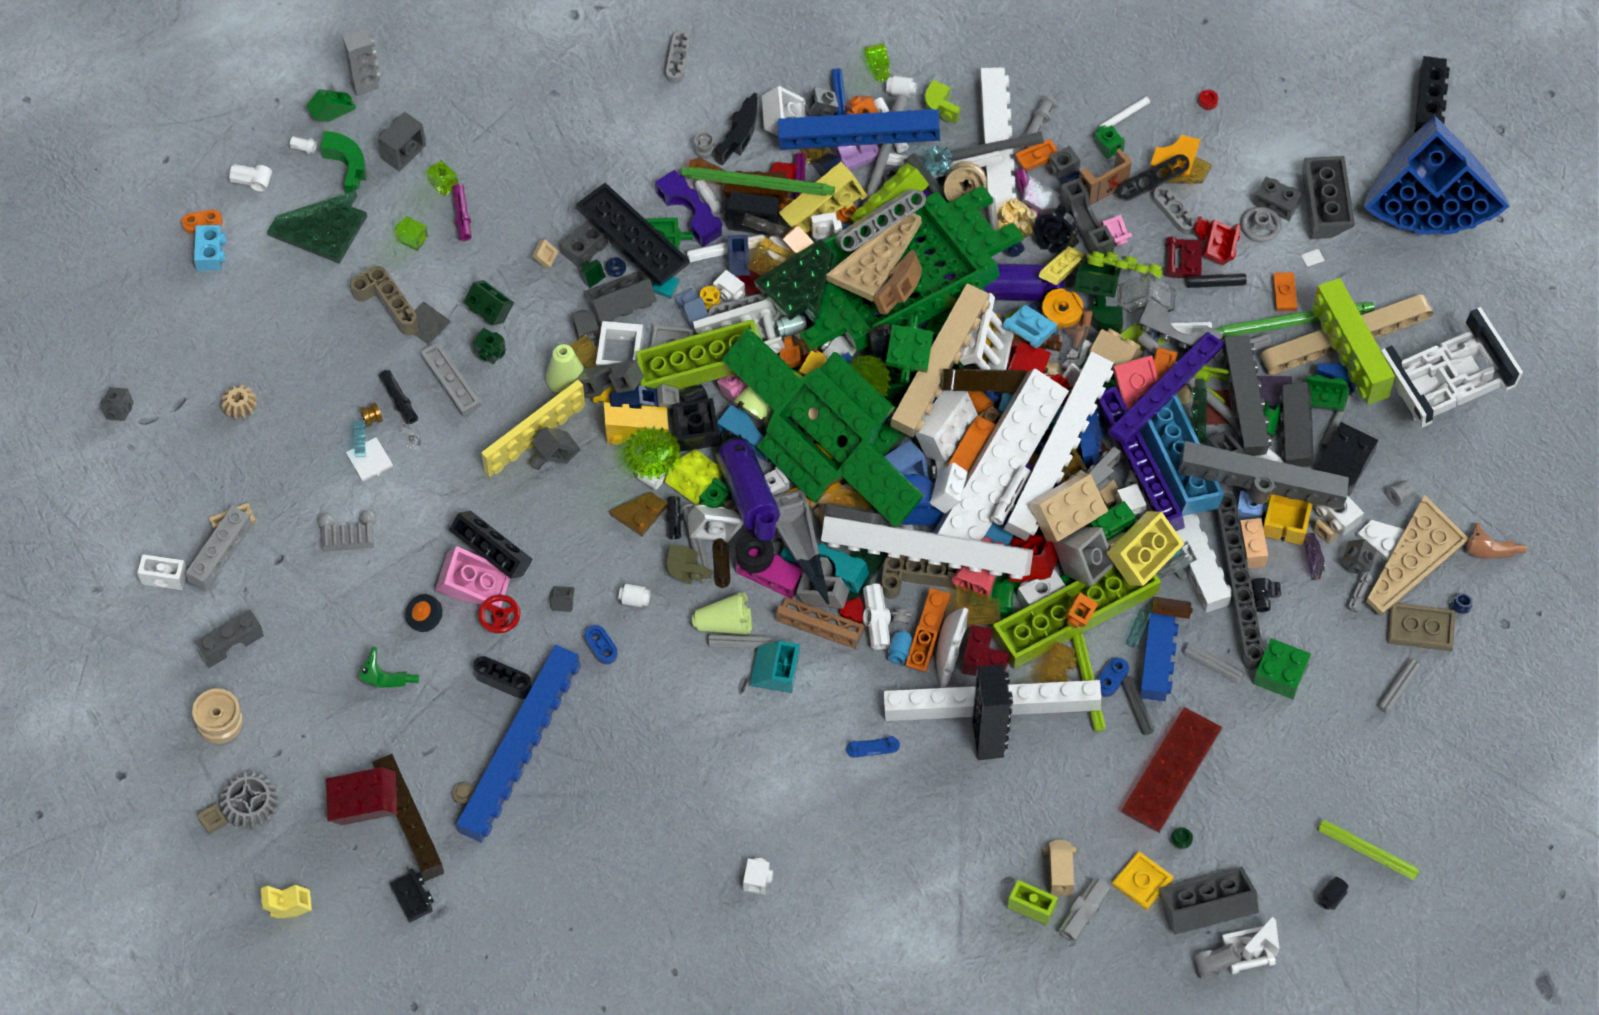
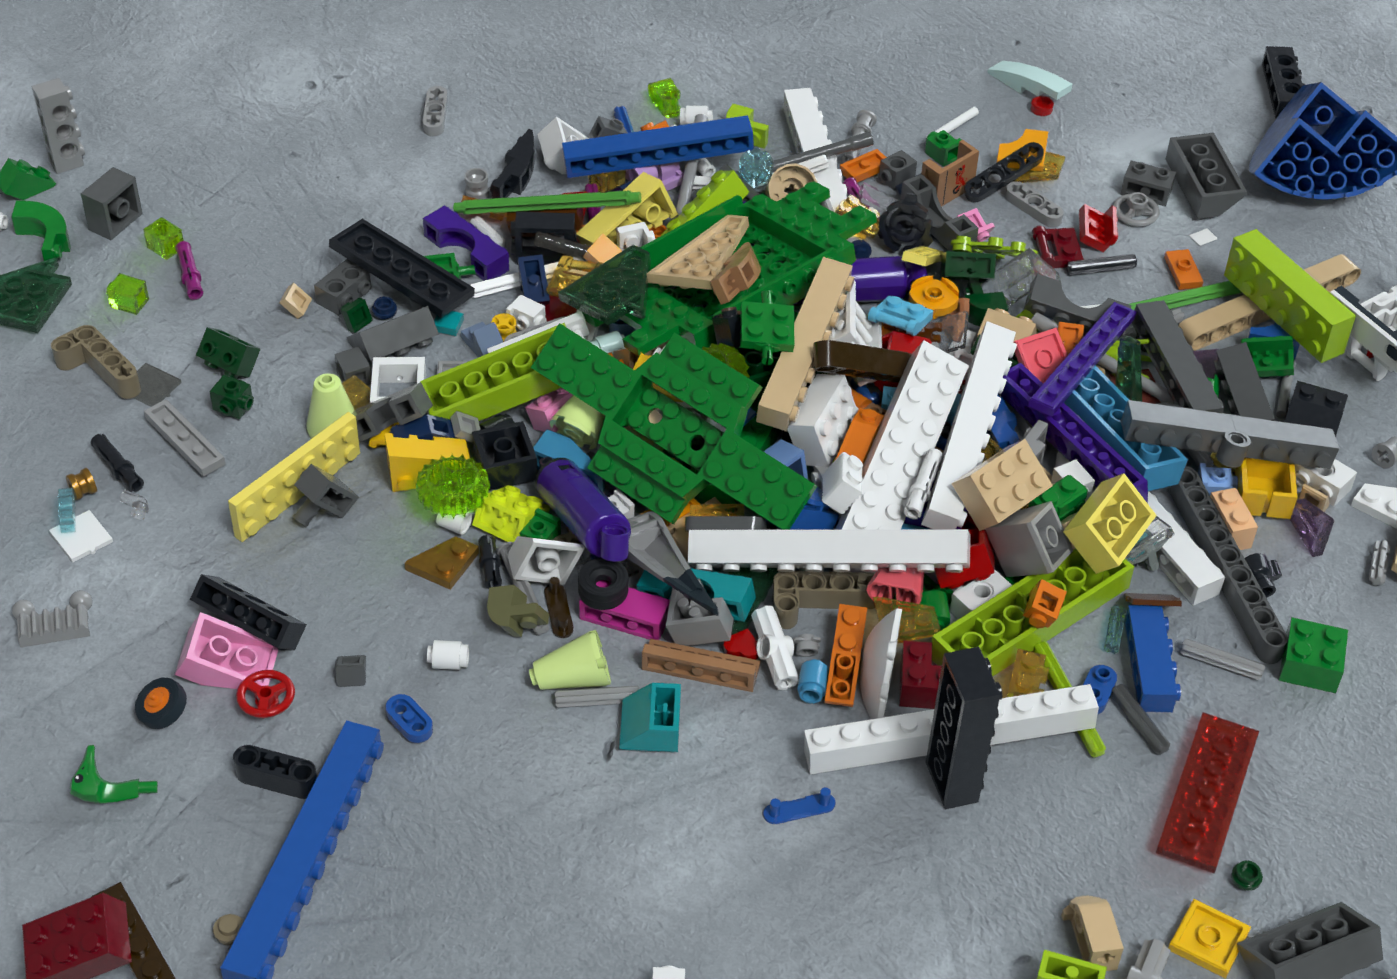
camera: 10 degrees left, 15 degrees down
(870, 220) = (708, 213): light grey beam -> none
(1201, 227) = (1070, 215): red plate -> none
(1202, 70) = (1030, 78): none -> light aqua slope
(1359, 556) = (1366, 520): dark grey brick -> none

